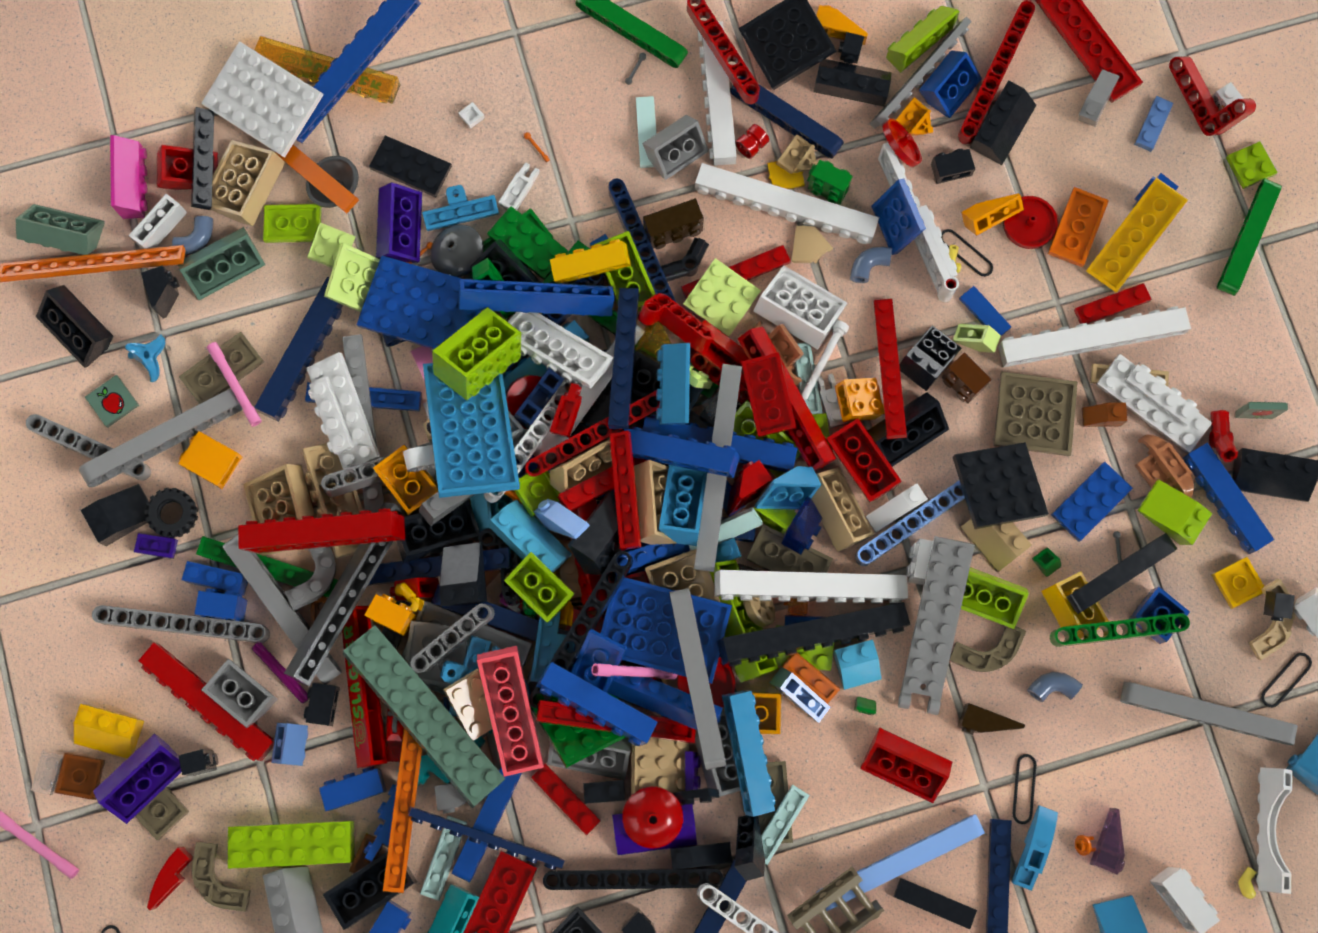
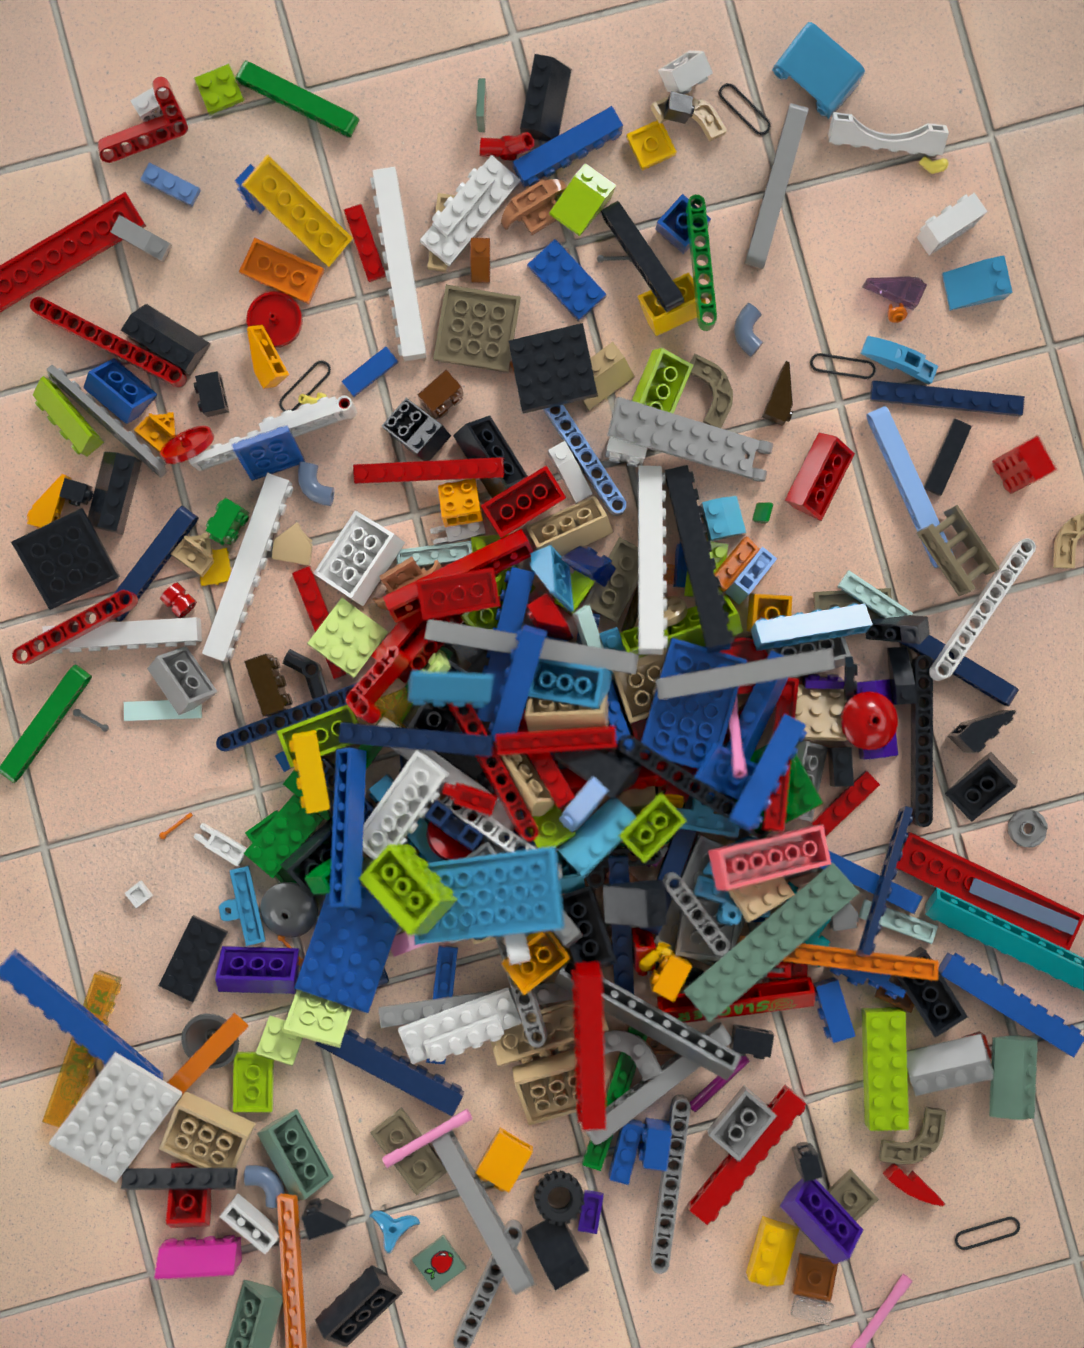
camera: 85 degrees left, 10 degrees up
(289, 744) = (790, 1072): medium blue brick -> none
(839, 329) = (384, 519): white piece -> none
(977, 337) = (396, 381): yellowish green slope -> none
(1047, 562) = (625, 328): green slope -> none

